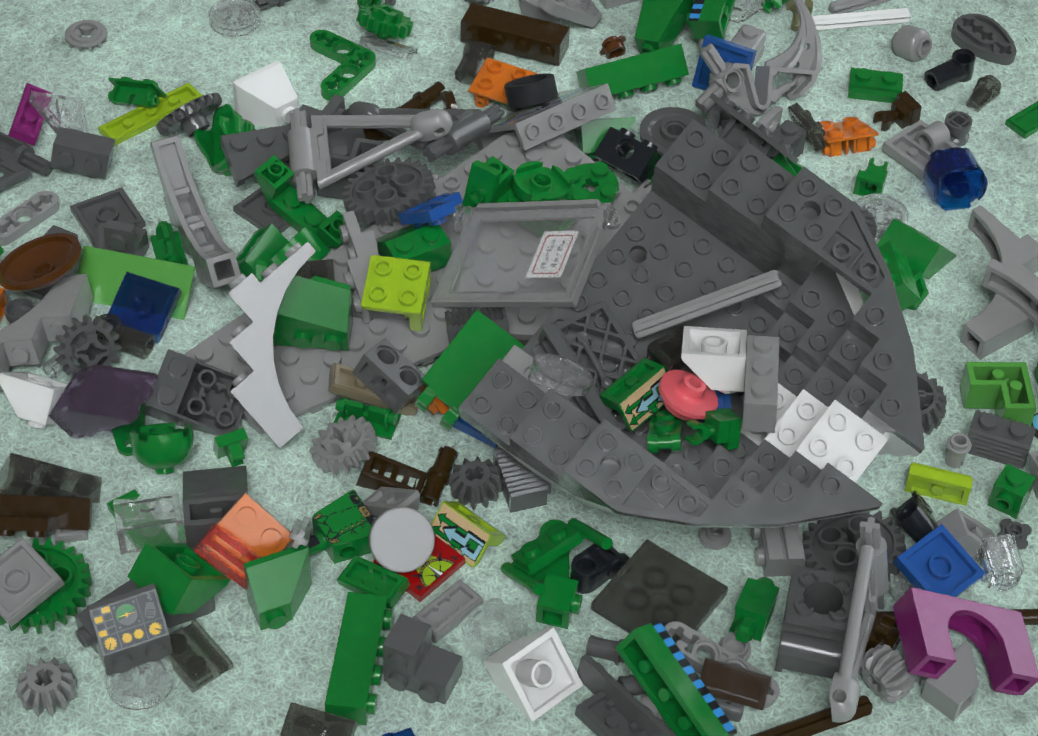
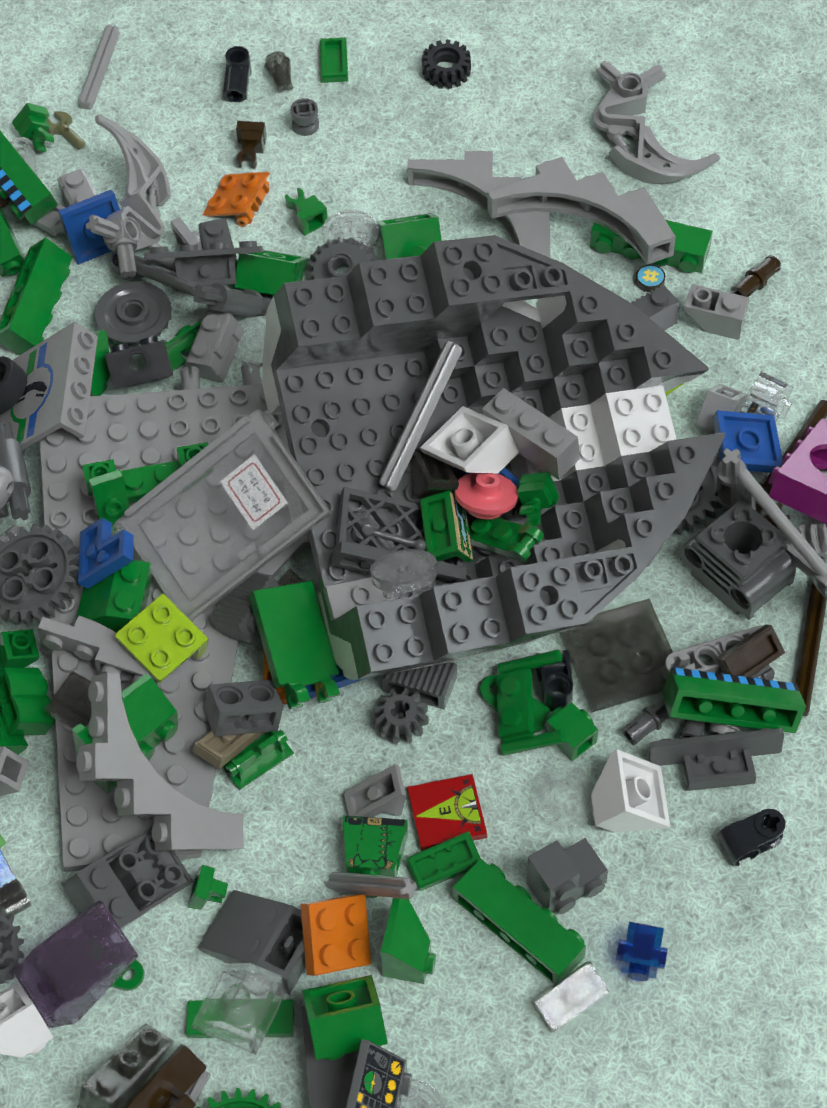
camera: 50 degrees left, 10 degrees up
(162, 446) = (163, 944): green cylinder -> none
(197, 656) = (424, 1051): clear smoke plate -> none
(217, 562) = (334, 978): clear red tile -> none
(343, 444) = (283, 807): light grey gear -> none
(374, 480) = (322, 793): dark brown slope -> none
(401, 539) = (431, 810): light grey tile -> none
(438, 476) = (368, 740): dark brown pin -> none
(449, 609) = (517, 821): light grey plate -> none
(465, 531) = (444, 756): panel -> none
(540, 183) = (142, 464): green plate -> none
(593, 175) = (161, 401): green plate -> none
(736, 647) = (705, 631): light grey plate -> none
(754, 609) = (686, 594): green piece -> none
(814, 129) = (205, 212): clear smoke plate -> none
(862, 18) = (115, 92): white axle -> none
(874, 85) = (201, 137): green plate -> none
(911, 43) = (181, 79): light grey head -> none
(915, 517) = (690, 424): black piece -> none
(916, 144) = (302, 154): light grey plate -> none
(957, 172) = (362, 156): clear blue brick -> none
(984, 38) = (214, 17): dark grey piece -> none
(999, 387) = (616, 274): bright green brick -> none
(1011, 491) = (703, 341): green brick -> none
(1021, 531) = (734, 378): dark grey plate -> none

